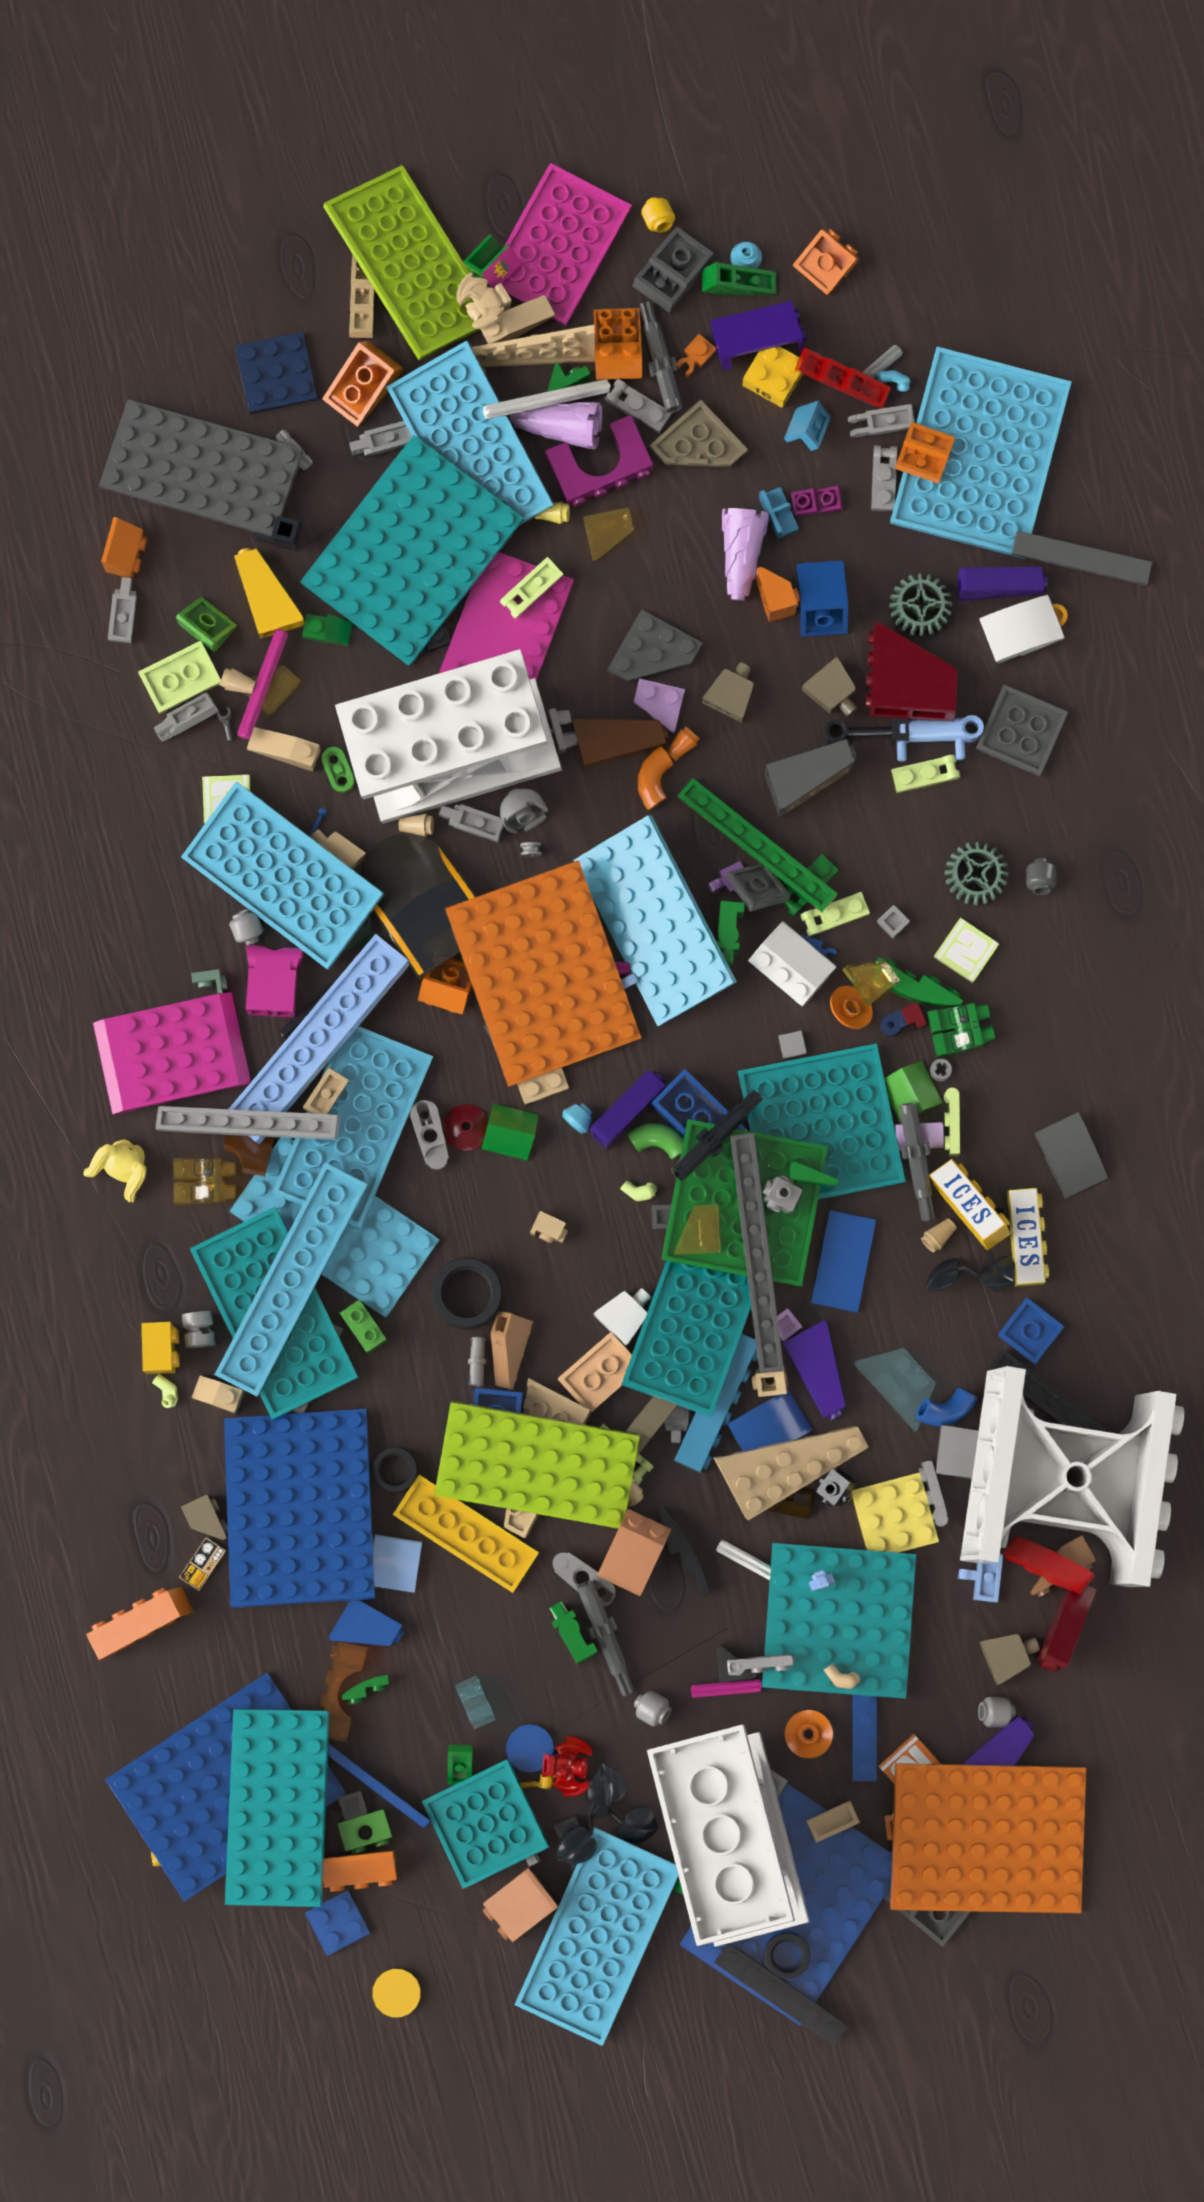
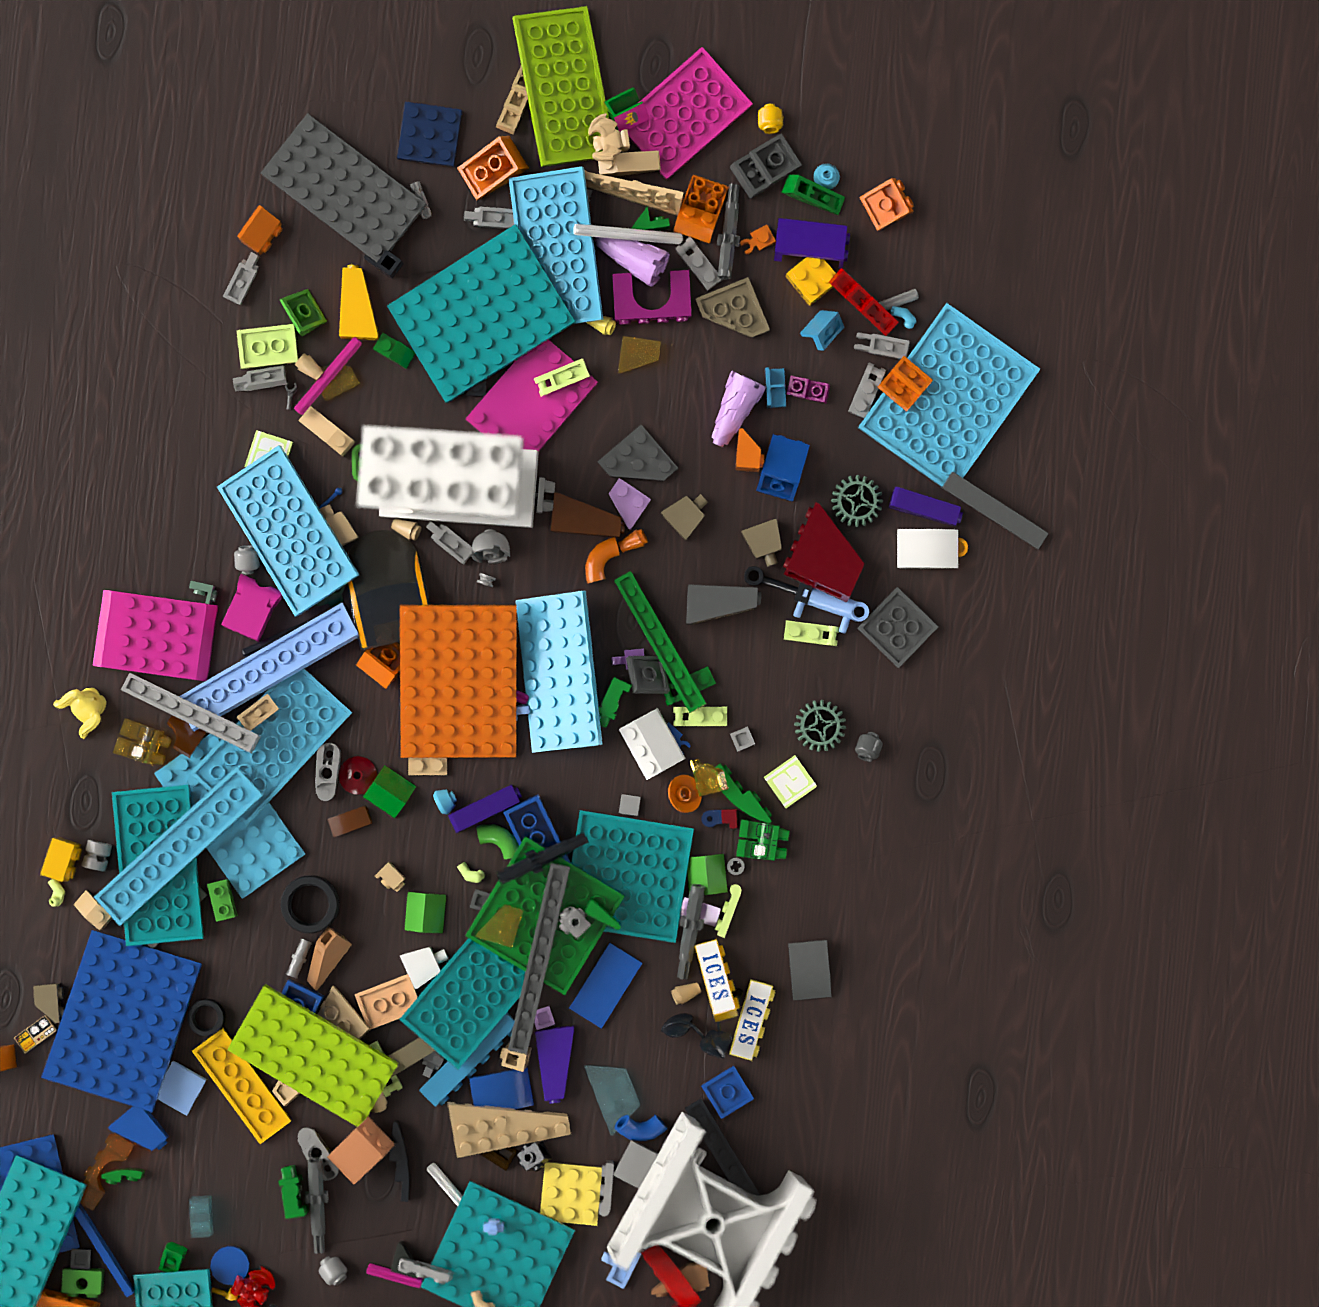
camera: 25 degrees right, 5 degrees up
(477, 1182) = (350, 821): none -> reddish brown slope
(603, 1255) = (425, 912): none -> bright green slope

